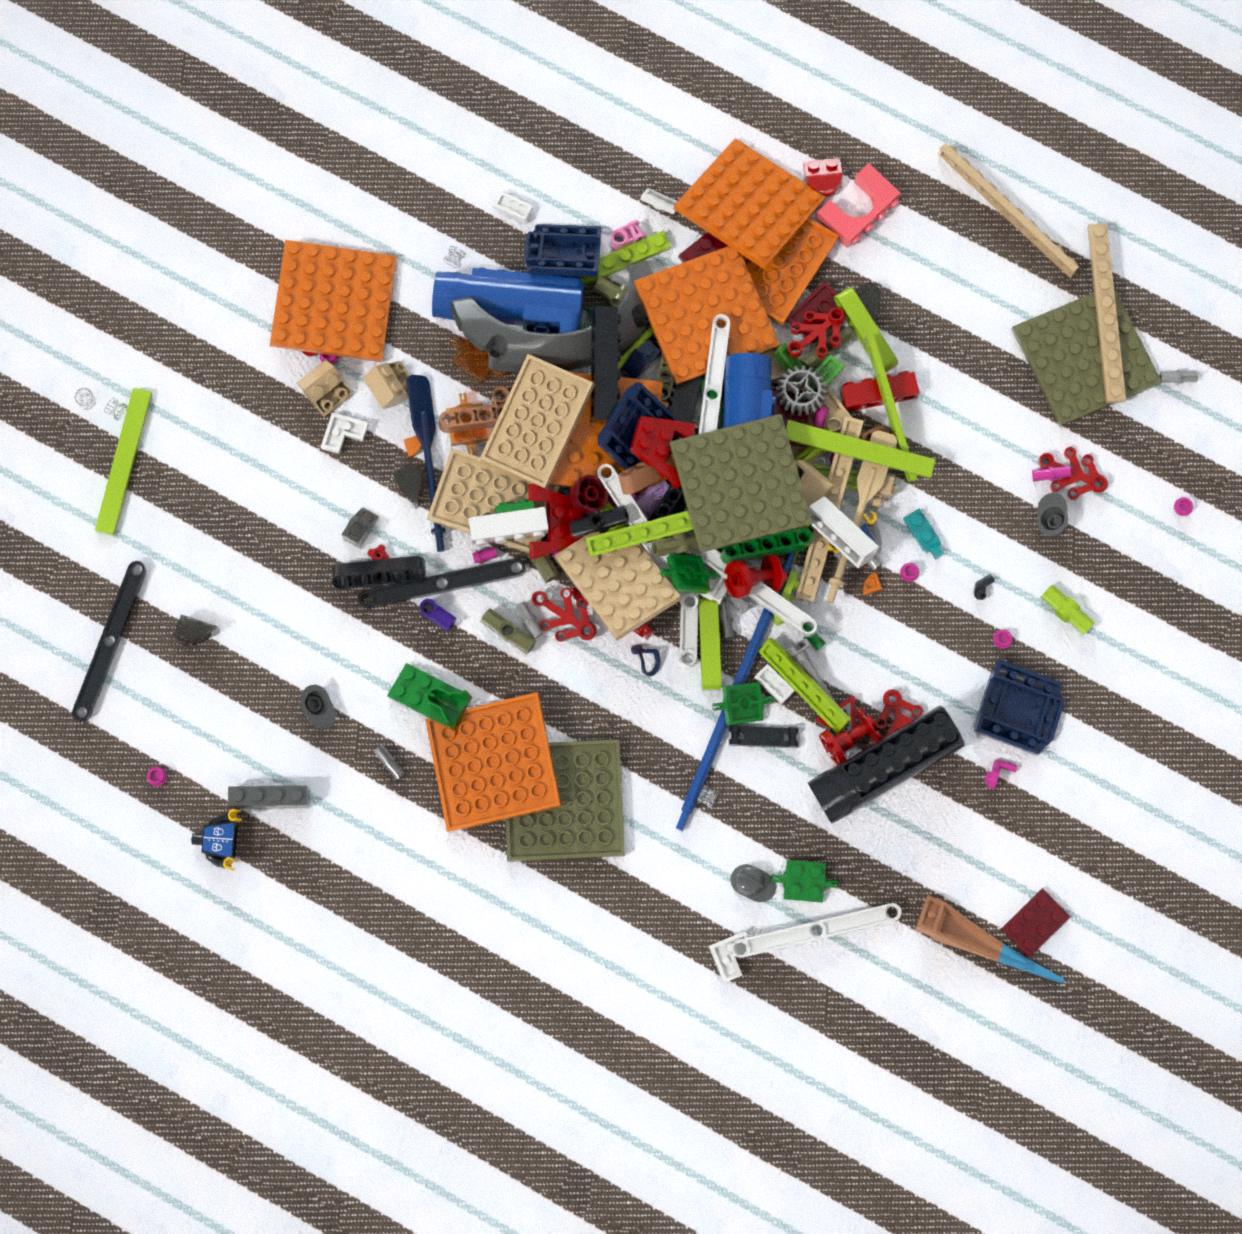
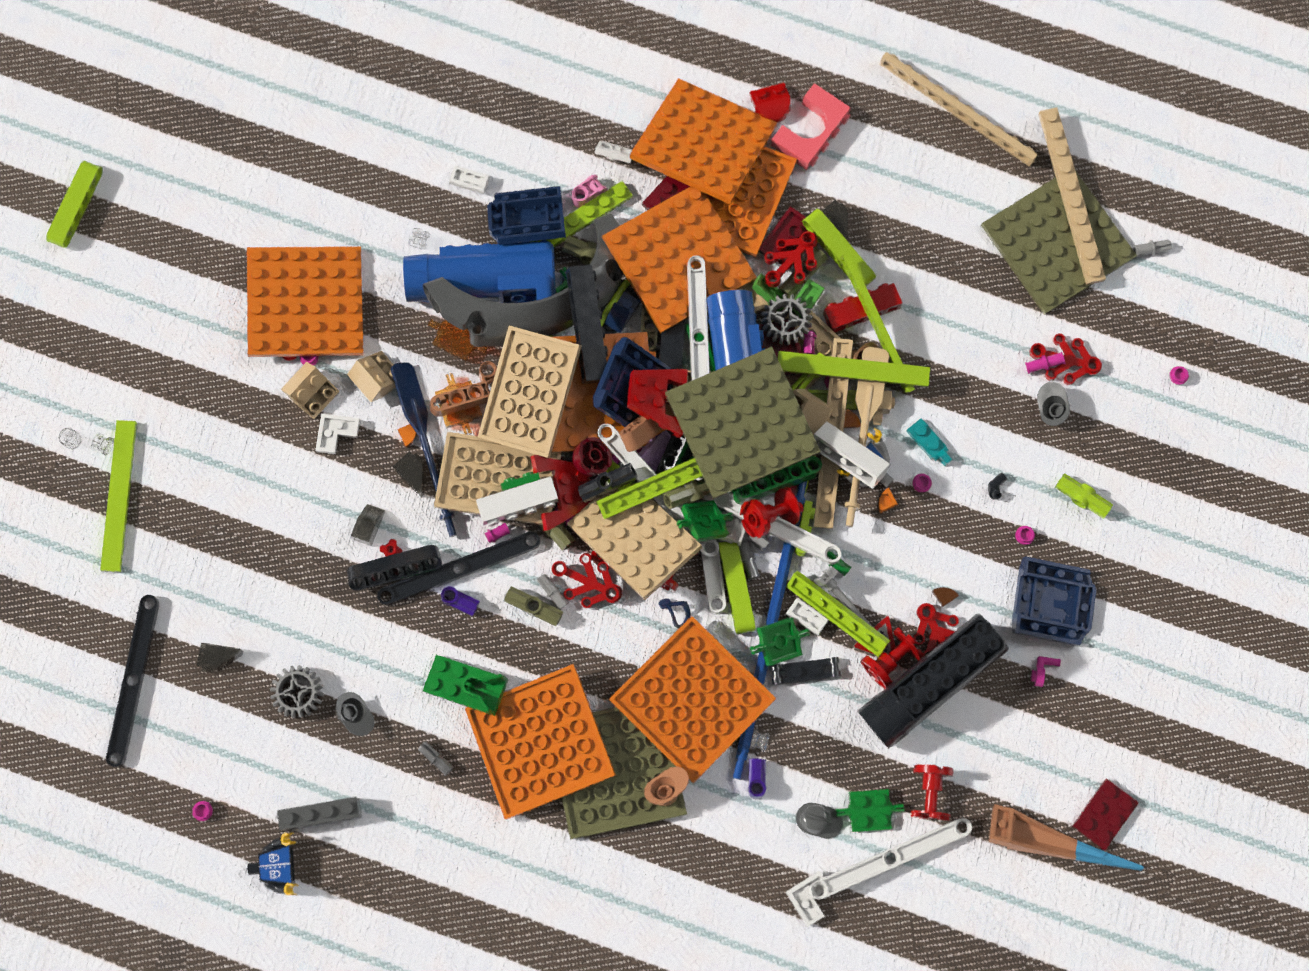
camera: 10 degrees left, 0 degrees up
(124, 172) = (74, 204): none -> lime beam
(266, 693) = (293, 674): none -> light grey gear
(609, 825) = (667, 786): none -> nougat piece
(648, 745) = (692, 699): none -> orange plate
(699, 831) = (757, 776): none -> dark purple piece
(849, 499) = (851, 420): none -> orange tile
(868, 865) = (932, 785): none -> red piece
(913, 685) = (944, 595): none -> reddish brown tile

